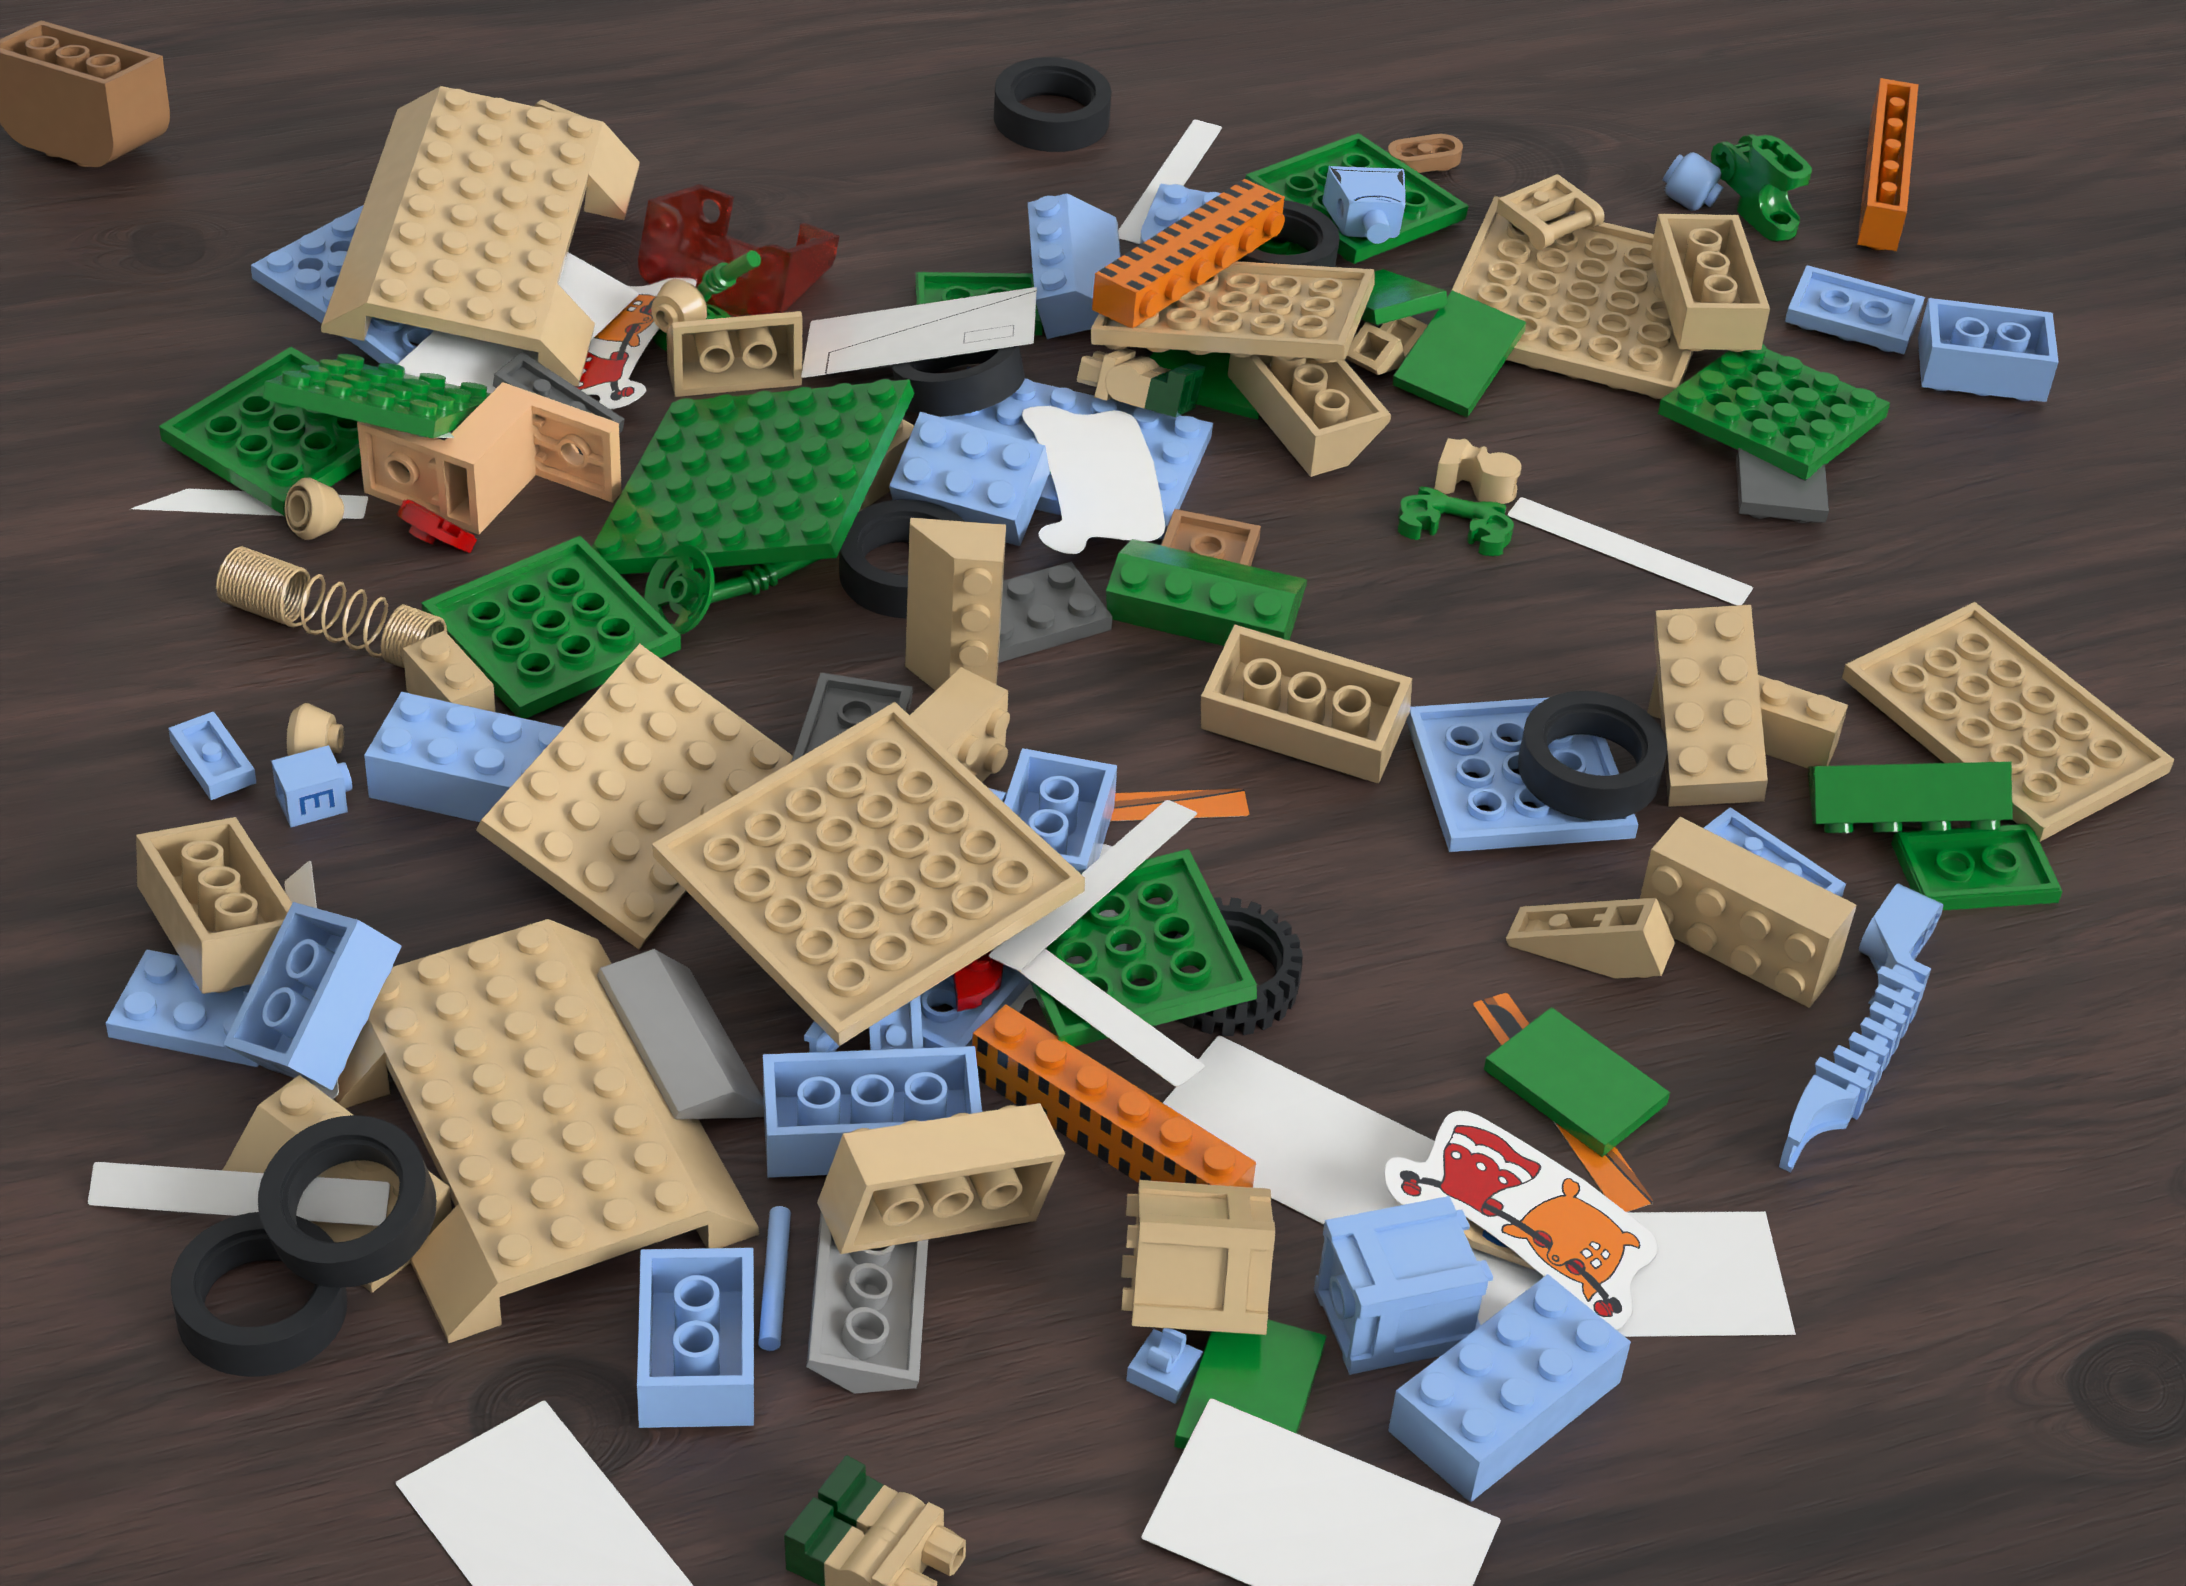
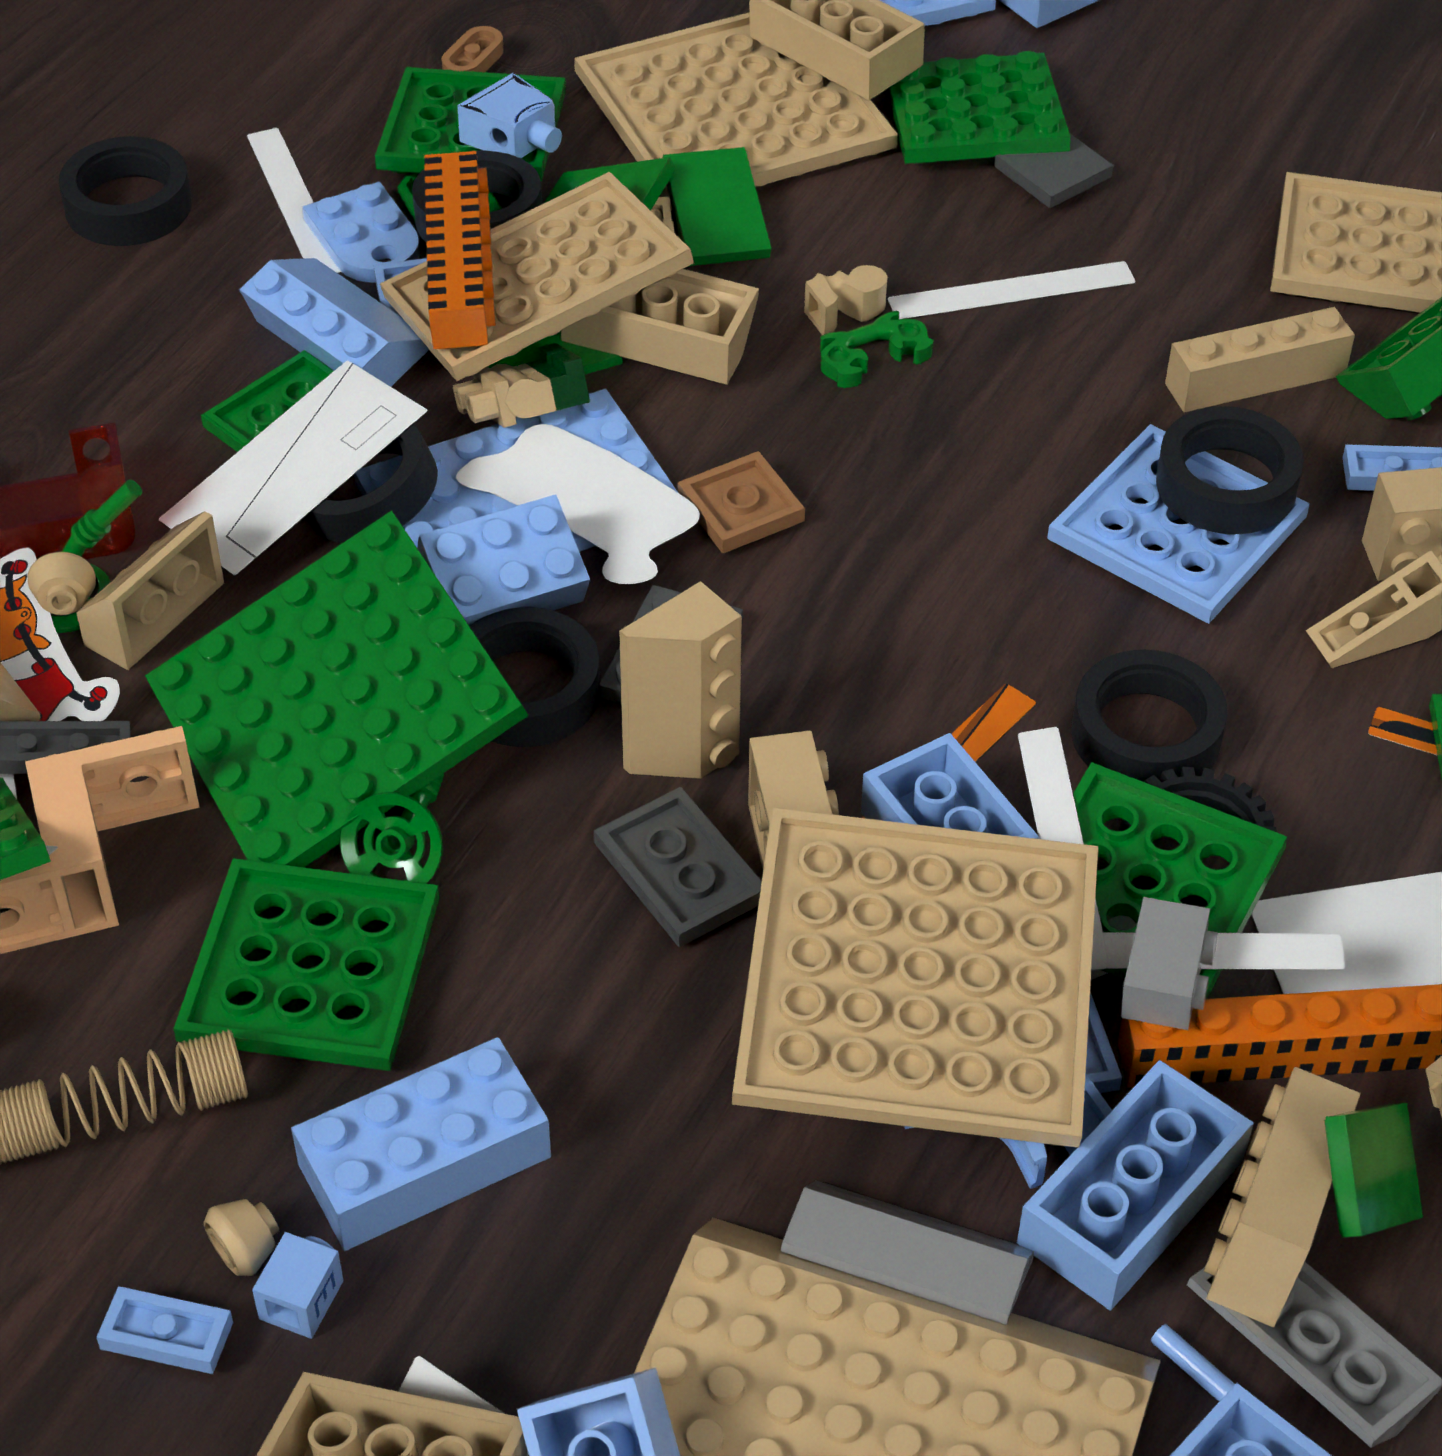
camera: 40 degrees left, 5 degrees up
(429, 526) = (78, 949): red plate -> none
(445, 673) = (296, 1083): tan brick -> none
(617, 780) = (604, 1062): tan plate -> none
(1018, 1206) = (1373, 1169): none -> green tile
(1046, 986) = (1166, 964): none -> light grey brick
(1200, 594) = (799, 539): green slope -> none
(1306, 703) = (991, 575): tan brick -> none
(1314, 832) = (1152, 674): none -> black tyre
(1547, 200) = (628, 39): tan plate -> none
(1710, 705) = (1267, 363): tan brick -> none

